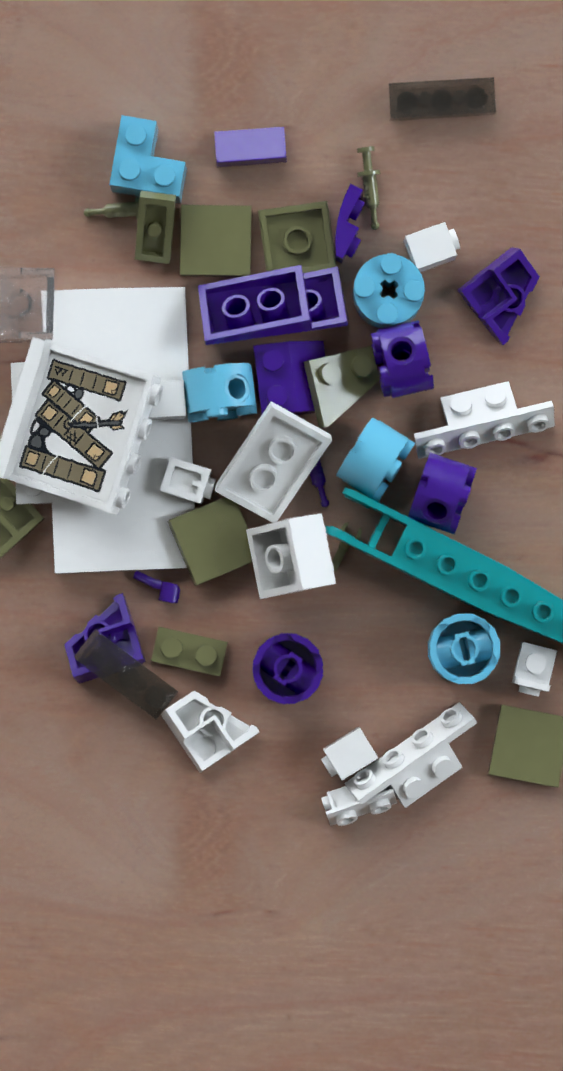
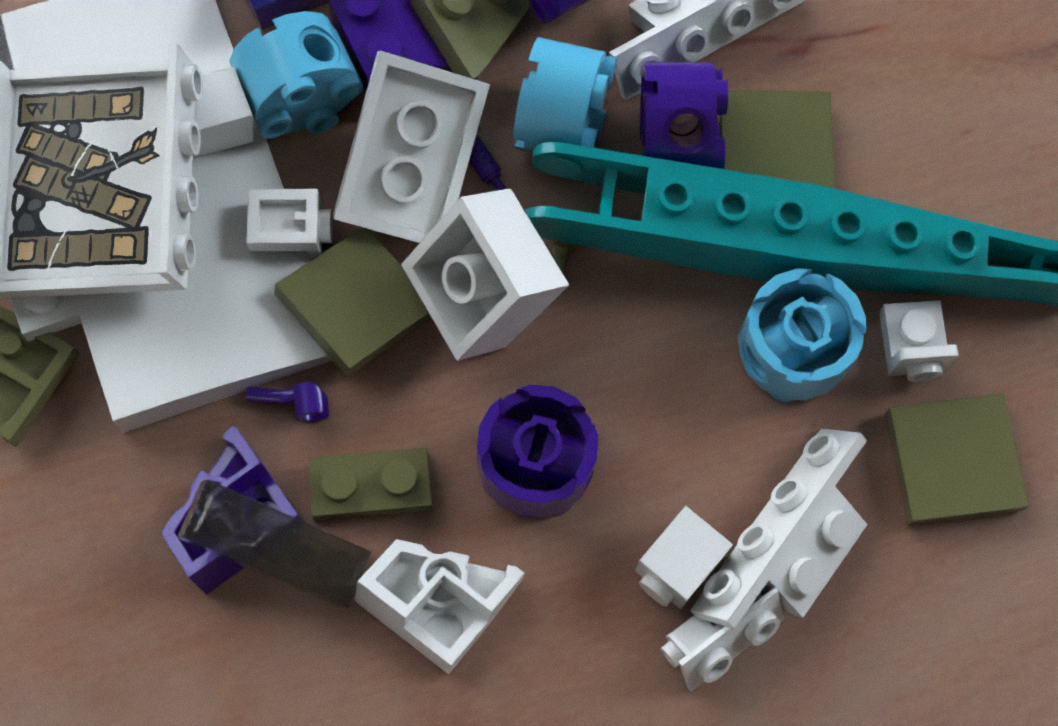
camera: 25 degrees left, 15 degrees down
(498, 519) = (780, 135): none -> olive tile

